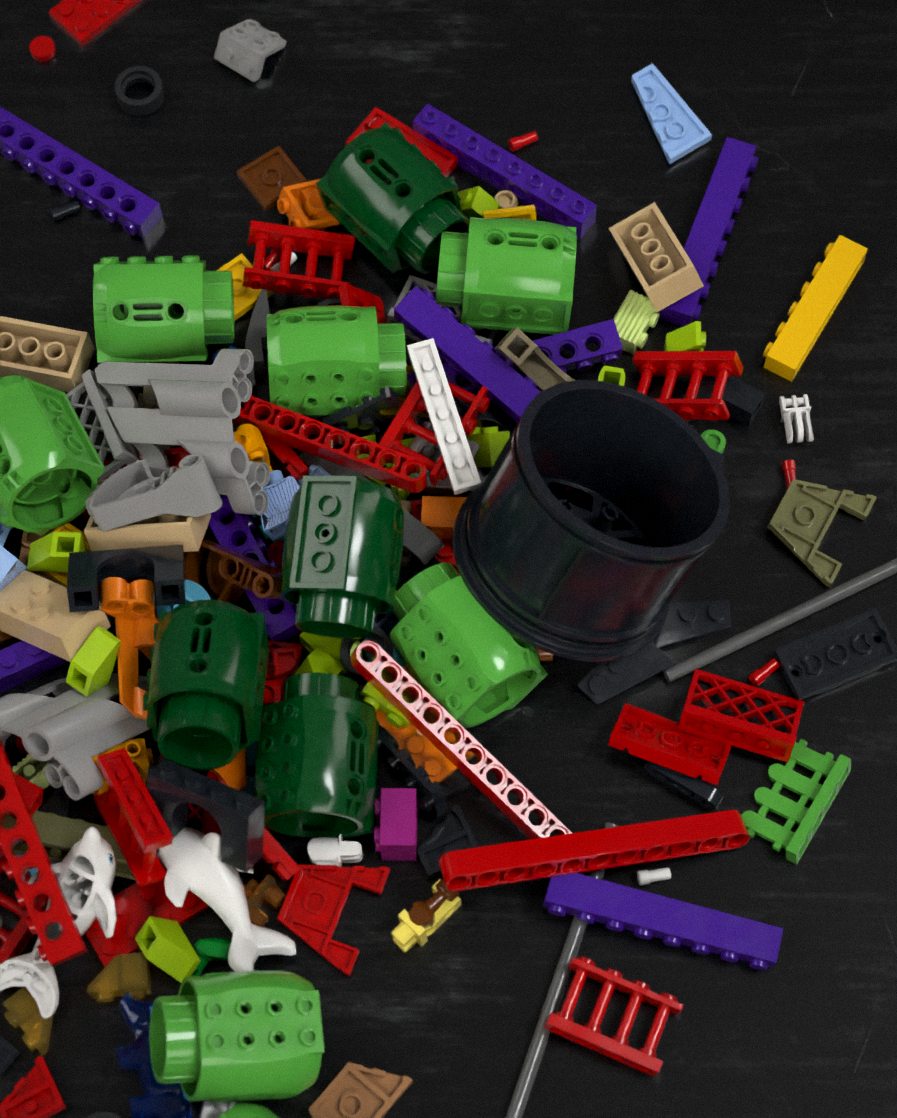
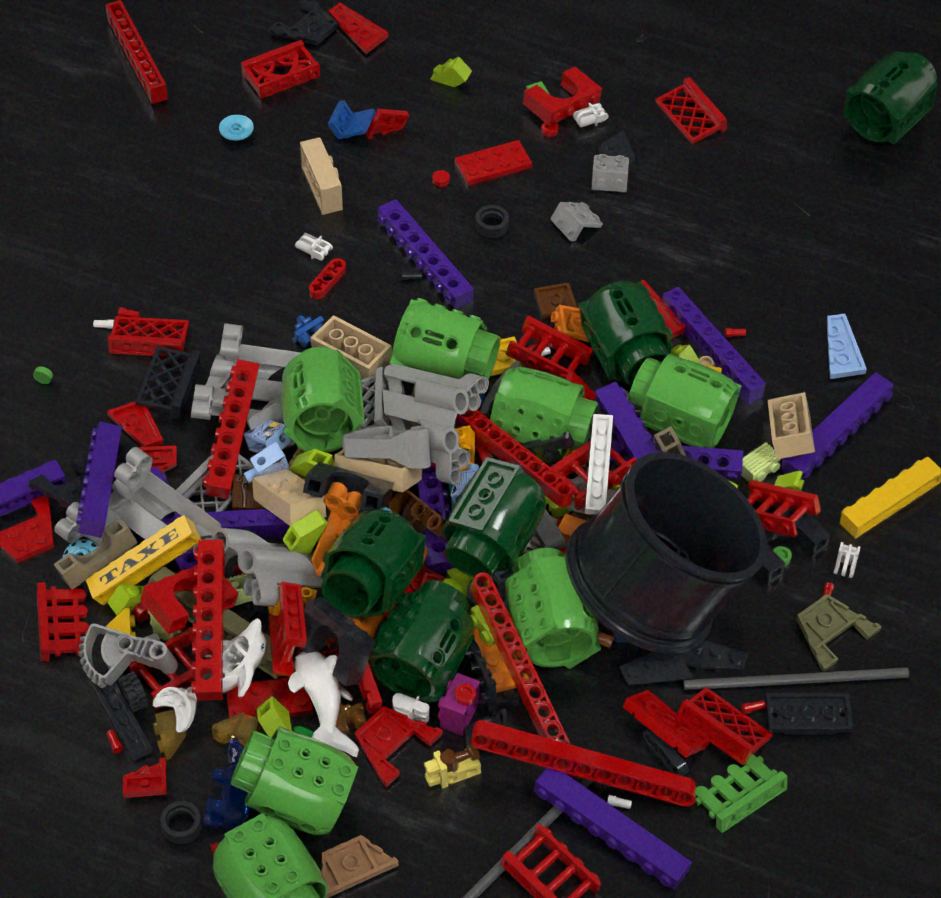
camera: 20 degrees right, 15 degrees down
(406, 817) = (465, 694): none -> red tile

